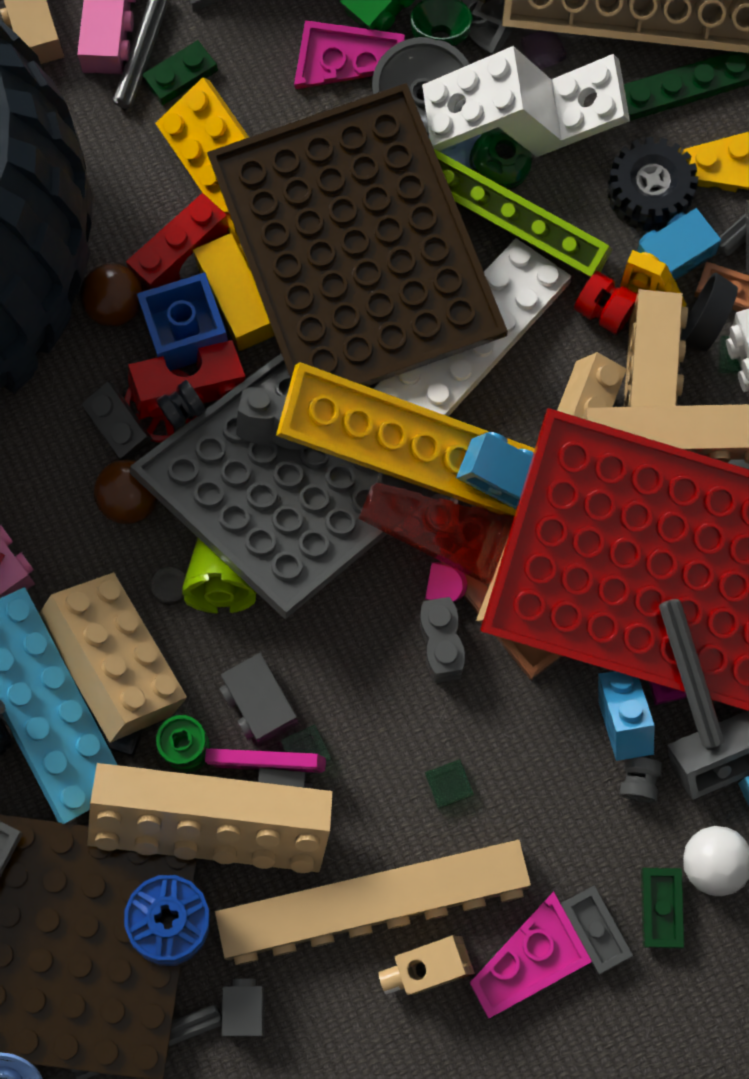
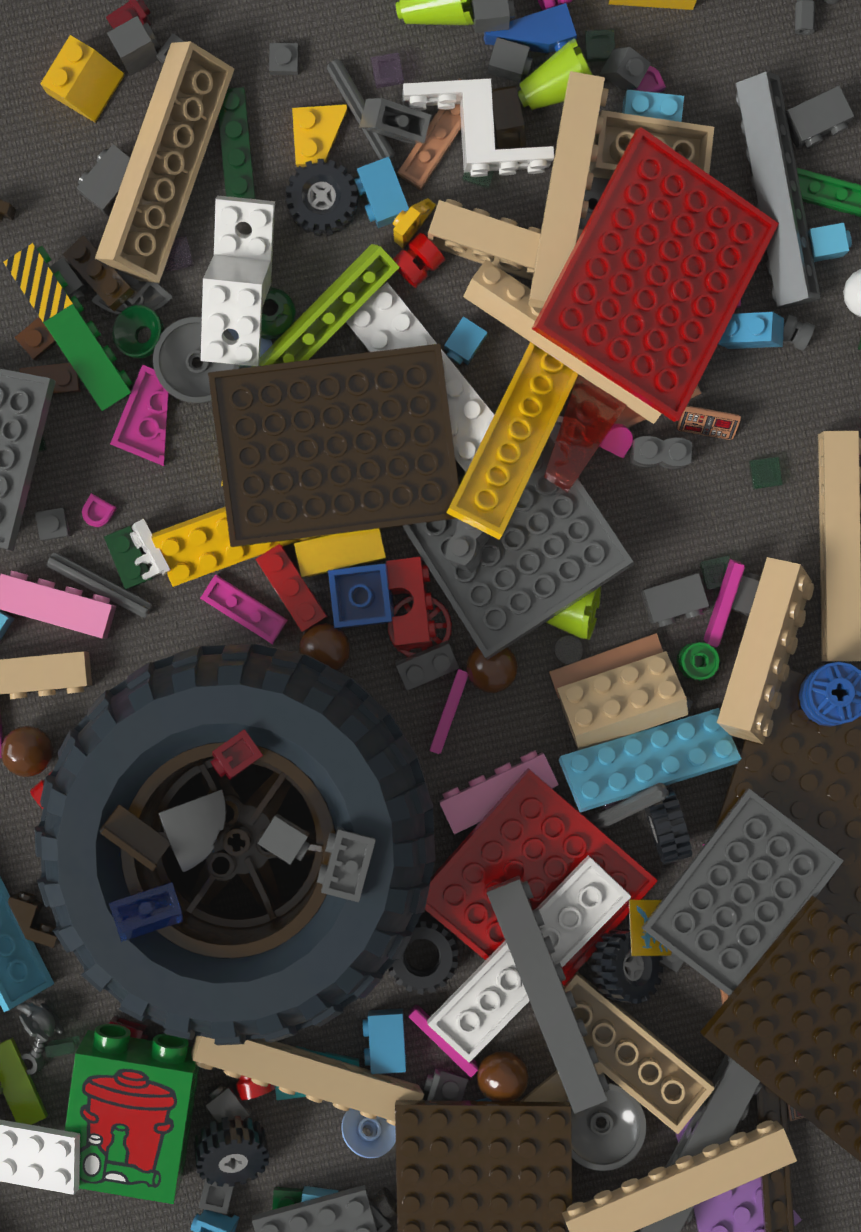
camera: 80 degrees left, 15 degrees up
(60, 455) = (449, 711): none -> dark pink tile
(145, 205) = (244, 609): none -> dark pink tile
(165, 636) = (606, 661): none -> nougat tile
(181, 405) = (440, 610): black wheel -> none
(210, 70) = (142, 538): none -> white plate
(226, 30) = (97, 511): none -> dark pink tile
(496, 467) = (548, 376): dark azure brick -> none
(496, 694) = (709, 422): none -> slope
(522, 378) = (464, 341): none -> dark azure brick
(691, 673) = (739, 274): dark grey axle -> none
(709, 313) = (432, 178): black tyre -> none

